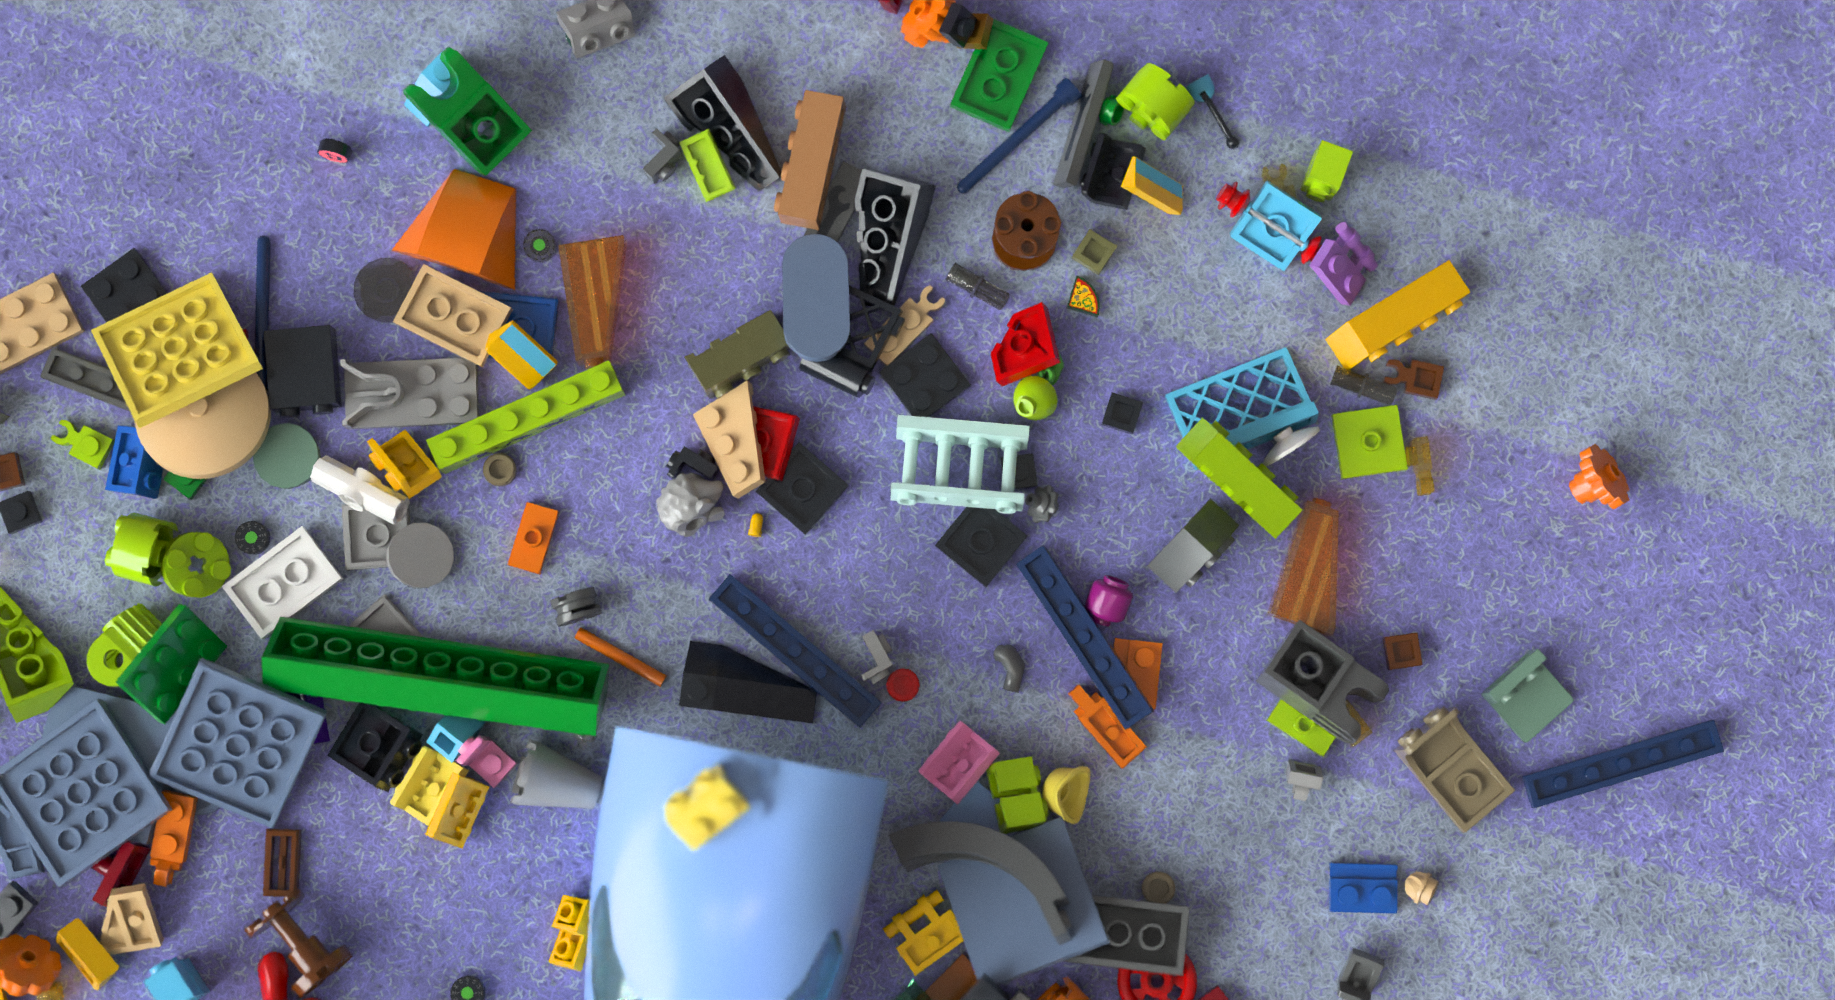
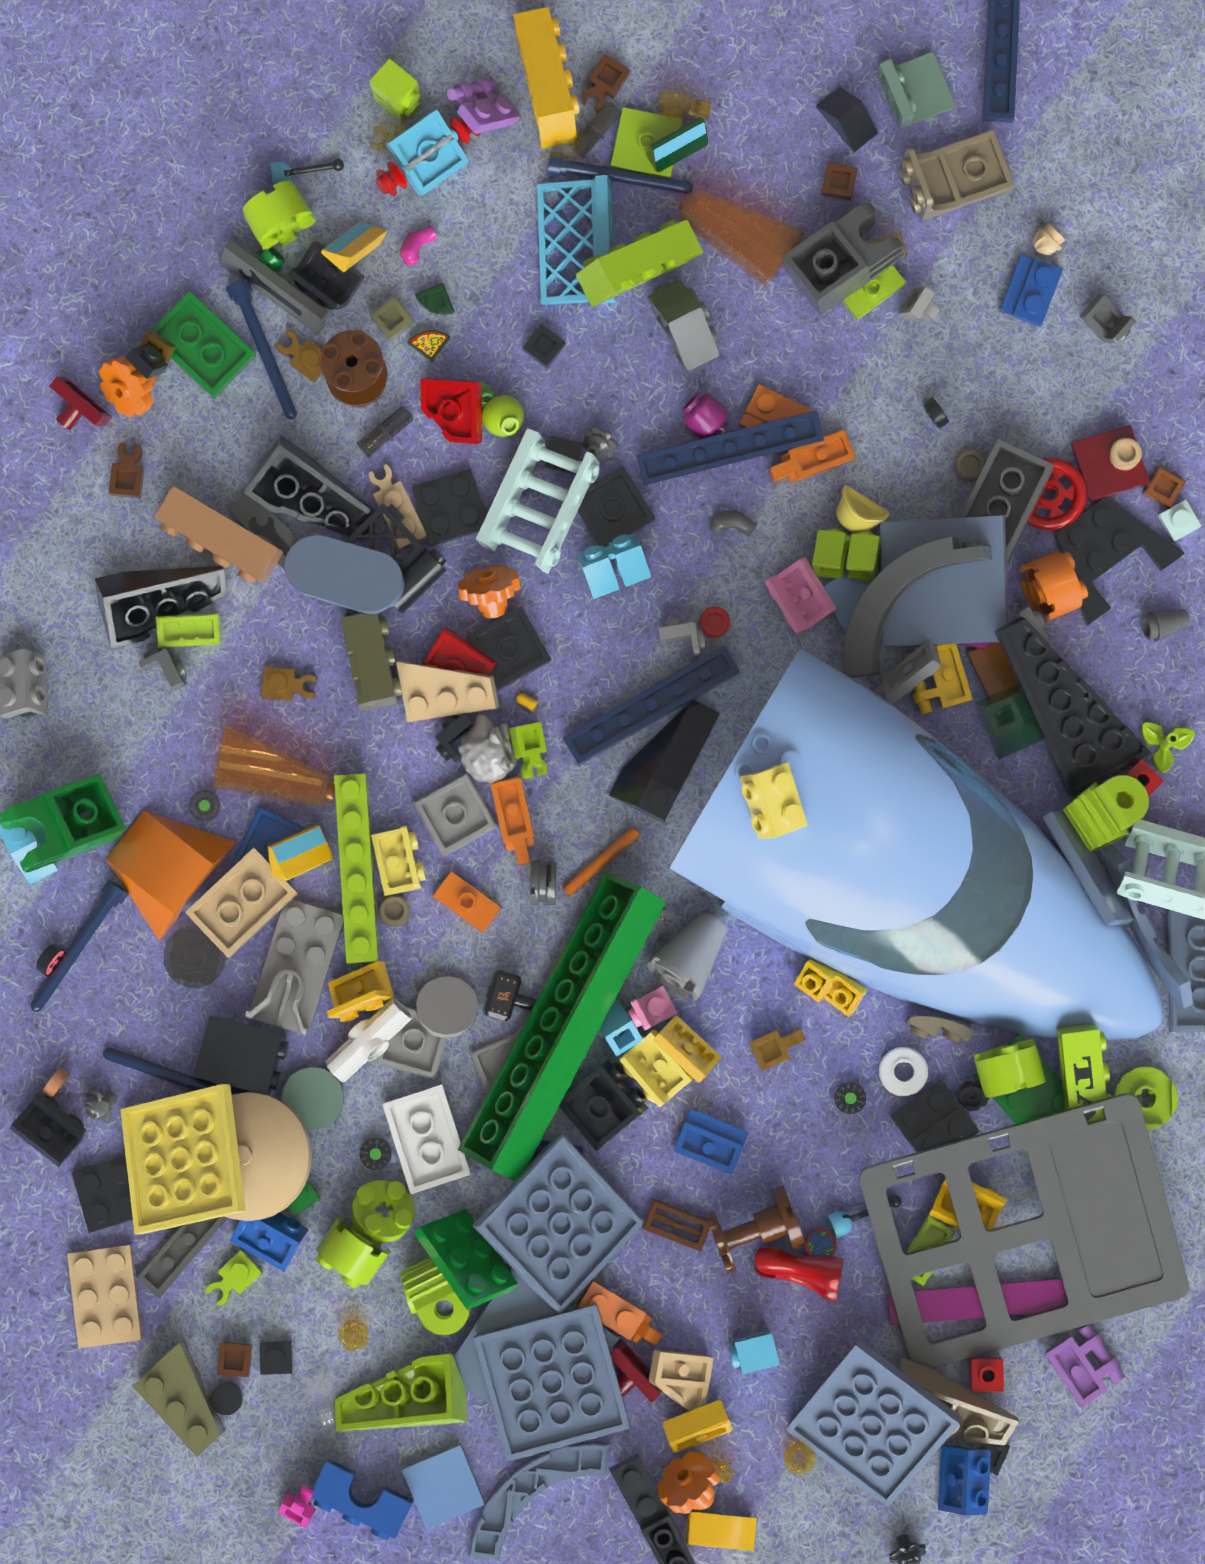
camera: 65 degrees left, 0 degrees up
(74, 580) = (361, 1331): none -> clear yellow plate
(167, 210) = (49, 1129): none -> black bracket
(208, 250) = (99, 1105): none -> dark grey plant
(216, 200) = (56, 1082): none -> nougat tile
(375, 867) = (710, 1141): none -> blue plate
(420, 188) = (111, 897): none -> dark blue piece
(451, 607) = (503, 996): none -> black piece
(490, 896) = (772, 1049): none -> pearl gold plate
(549, 454) = (397, 861): none -> light yellow bracket
(616, 494) = (455, 815): none -> light grey tile
(633, 554) = (513, 817): none -> orange hinge
(688, 277) = (282, 683): none -> pearl gold plate
(711, 542) = (528, 743): none -> lime plate
(839, 50) = (126, 477): none -> reddish brown plate
(854, 446) = (489, 589): none -> orange plant
(909, 550) = (598, 569): none -> medium azure piece
(912, 898) = (909, 673): none -> light grey hinge
(1025, 178) = (305, 357): none -> pearl gold plate
(1130, 289) = (435, 300): none -> dark green tile
(1179, 245) = (413, 242): none -> dark pink arm
(1198, 834) = (935, 413): none -> black tile
(1289, 441) = (624, 210): white dish -> none
(1314, 363) = (560, 165): none -> dark blue piece
(1377, 474) = (678, 145): none -> dark green slope
(1471, 637) = (848, 118): none -> black slope

